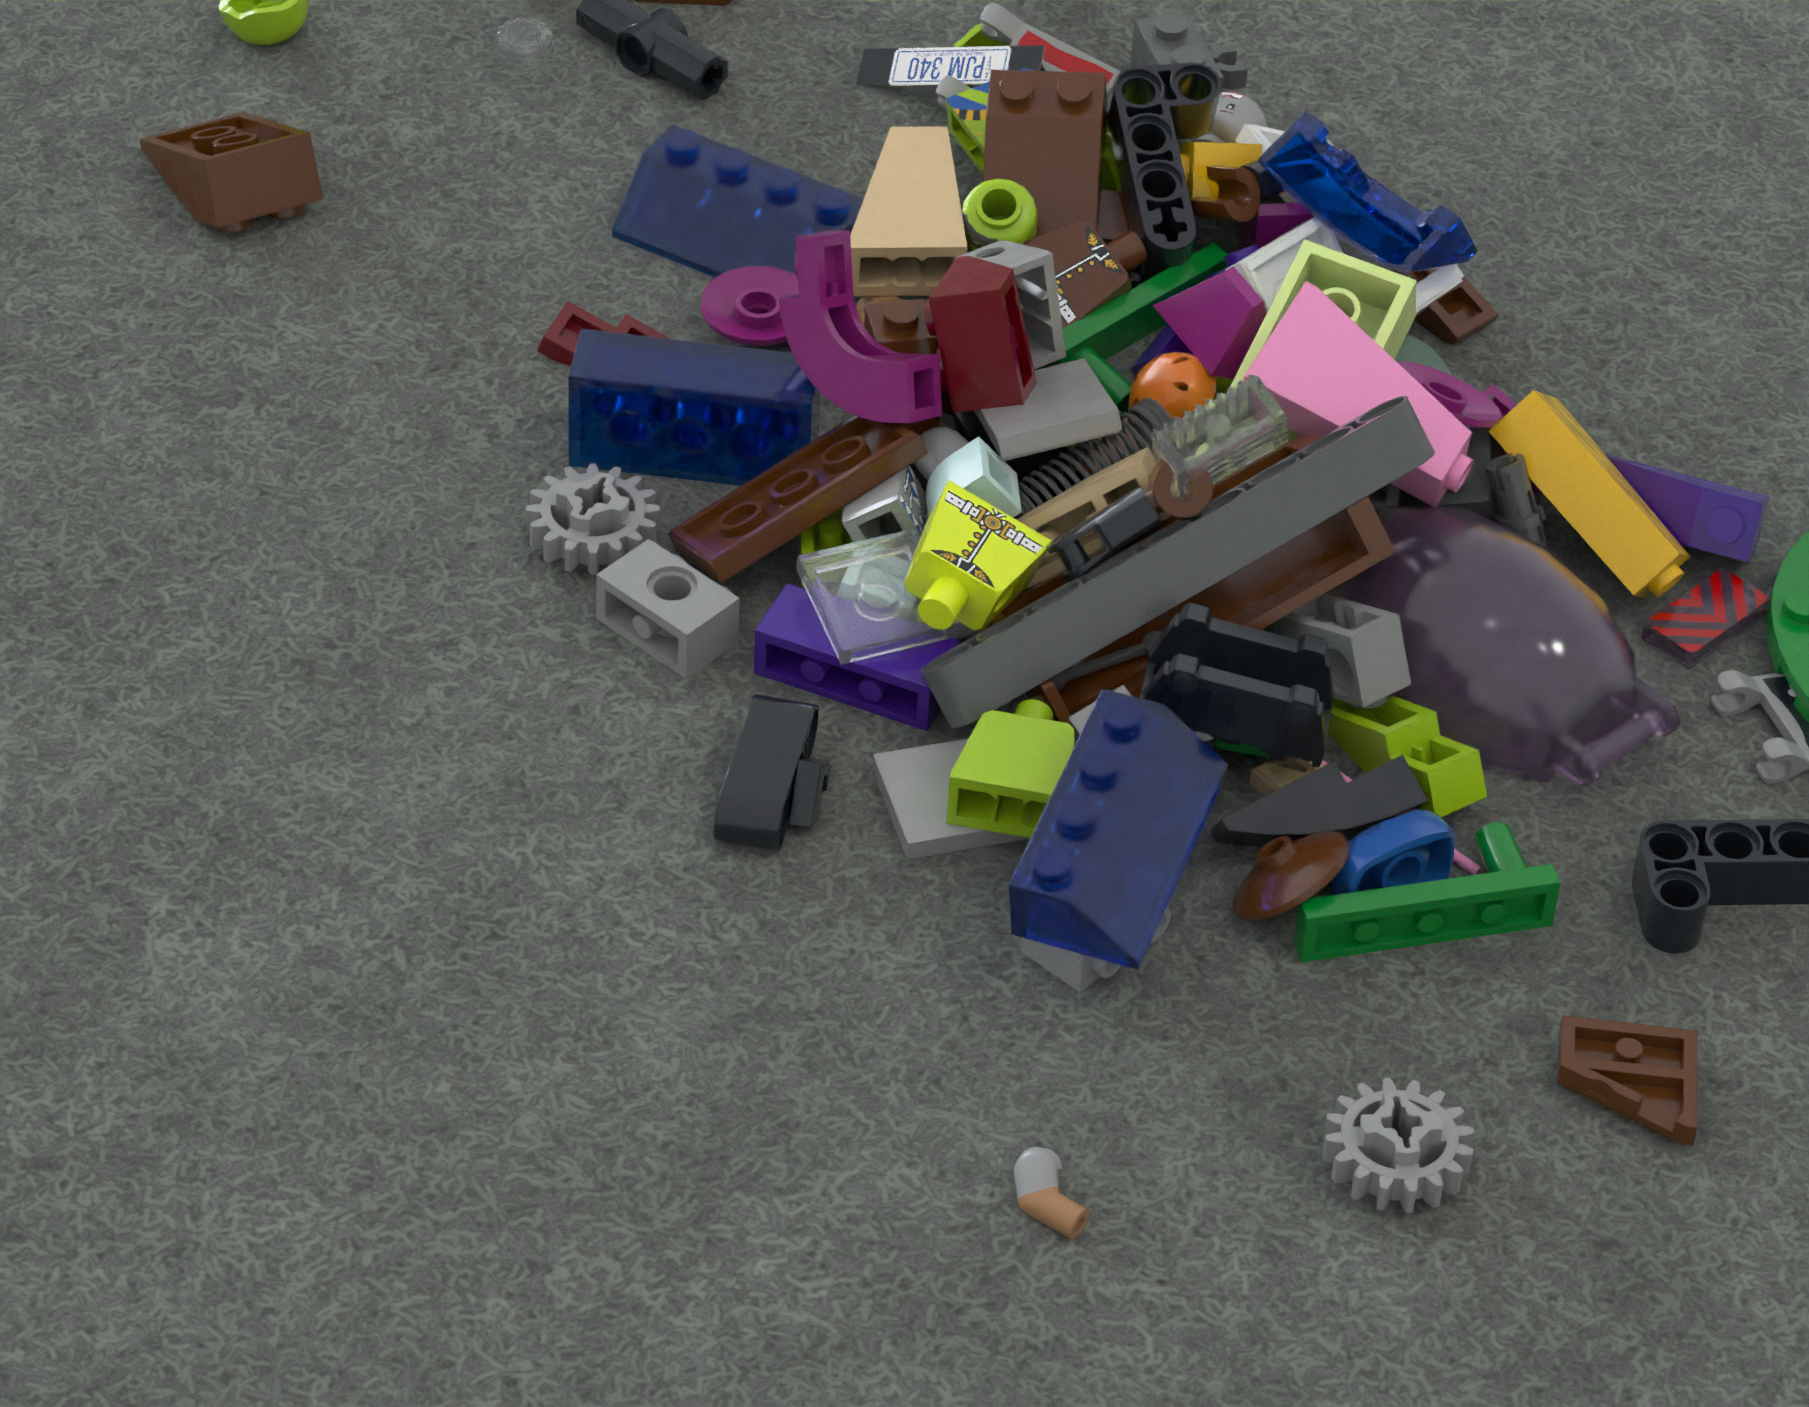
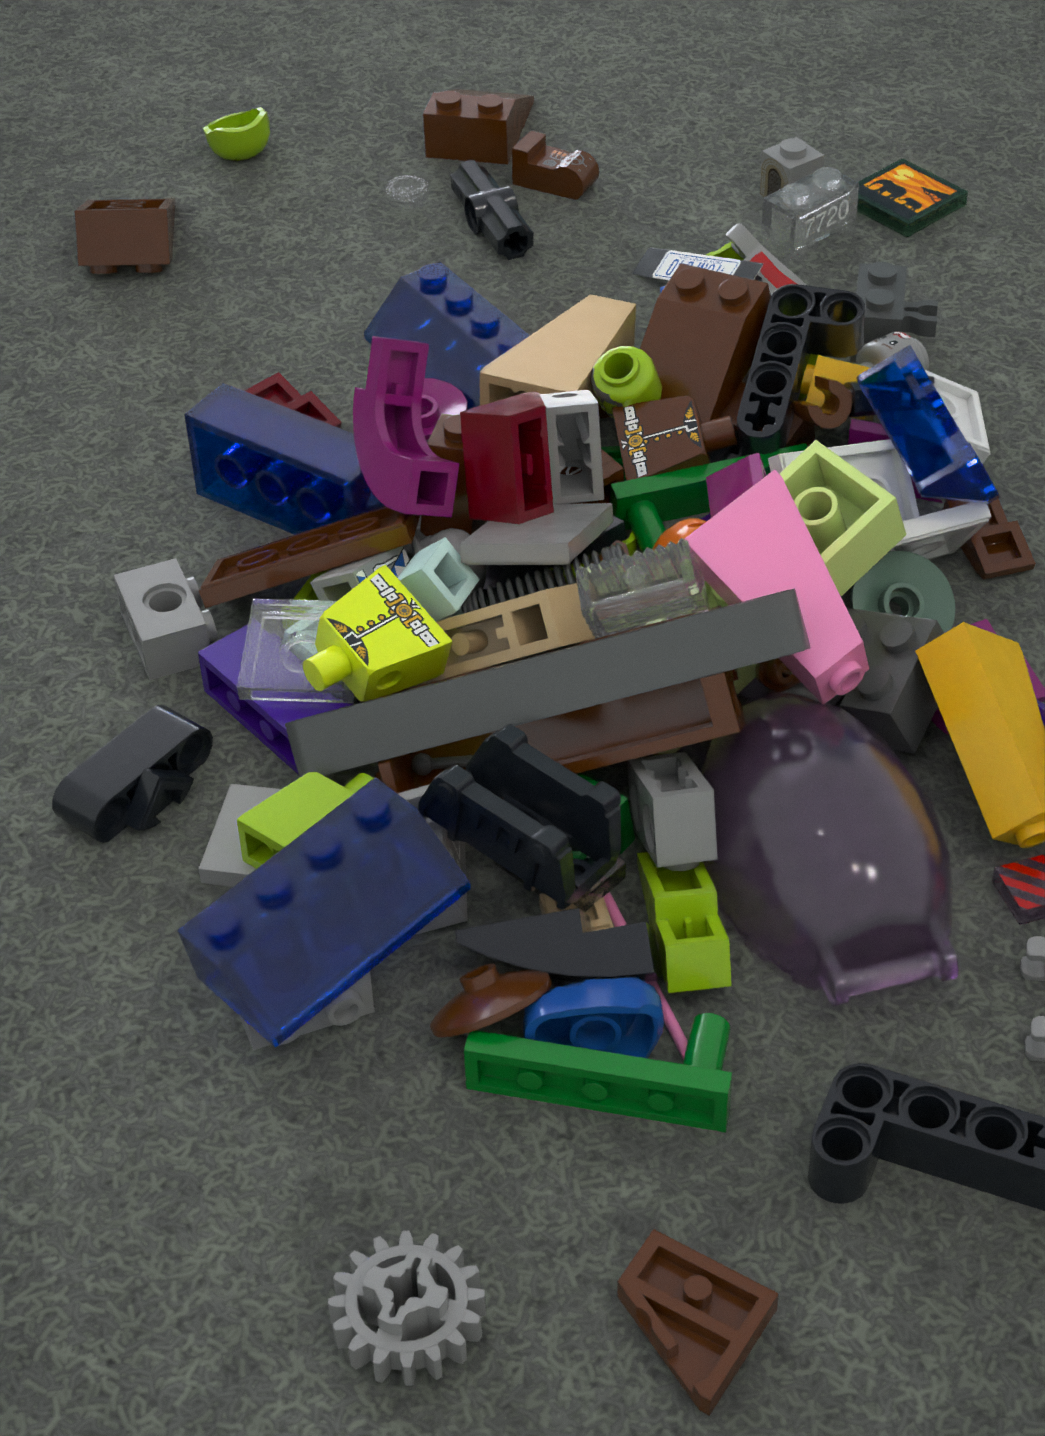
camera: 30 degrees right, 0 degrees up
(591, 517) = (165, 531): light grey gear -> none
(1040, 1195) = (57, 1238): arm -> none
(1131, 518) = (520, 635): black piece -> none
(1459, 398) = (881, 607): magenta dish -> none
(1515, 498) = (920, 734): dark grey pin -> none

